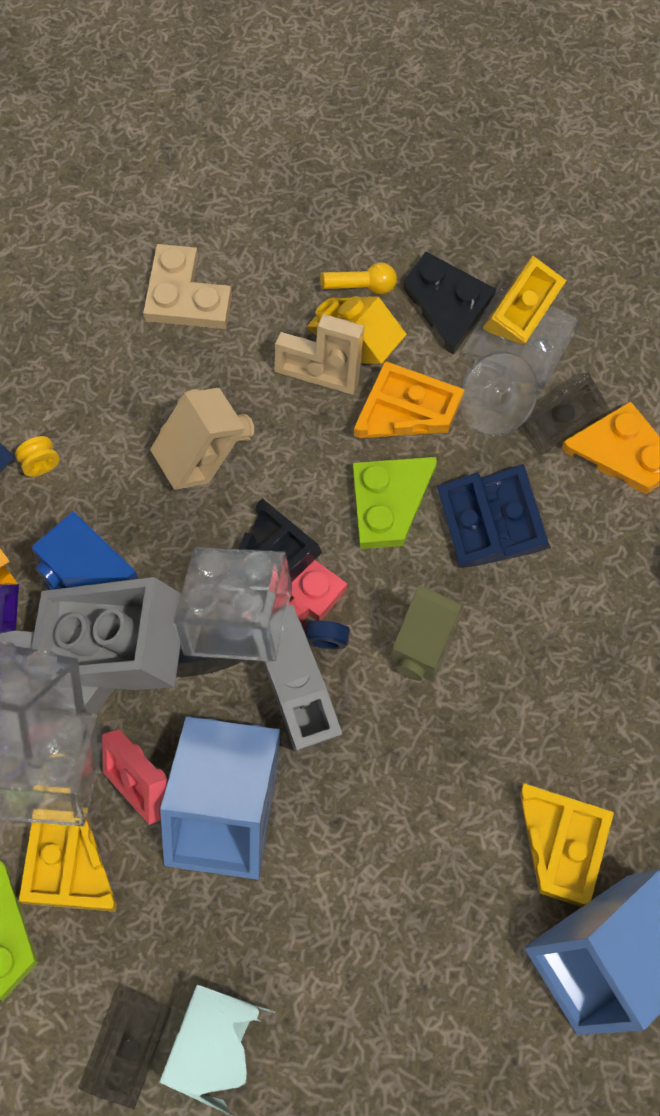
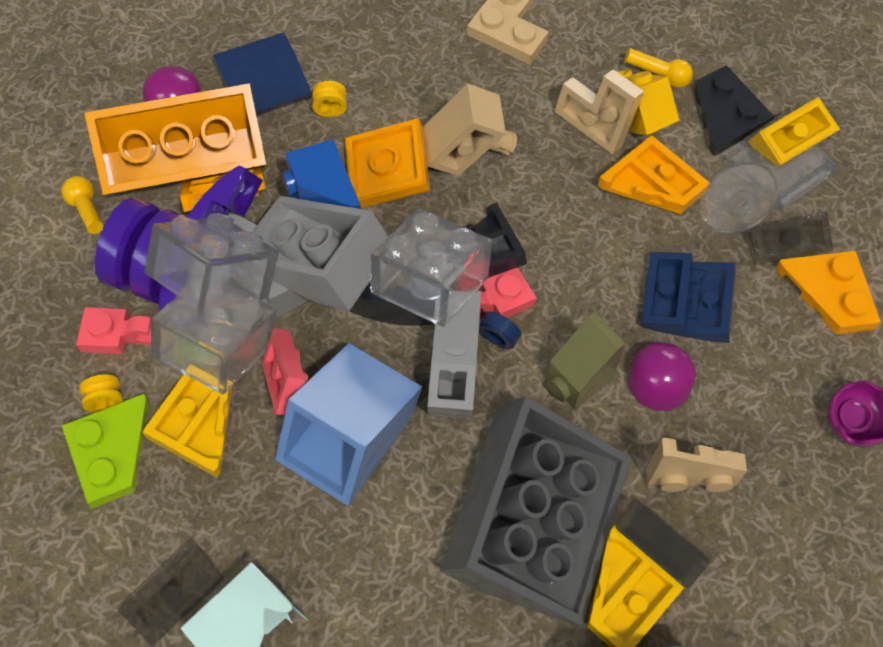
camera: 20 degrees right, 5 degrees down
(132, 502) = (388, 163): none -> light orange plate
(389, 498) = (604, 246): lime wing -> none
(444, 803) = (537, 512): none -> dark grey slope
(502, 611) = (661, 376): none -> magenta hair
(576, 781) = (662, 543): none -> clear smoke slope
(587, 686) = (705, 467): none -> tan wing

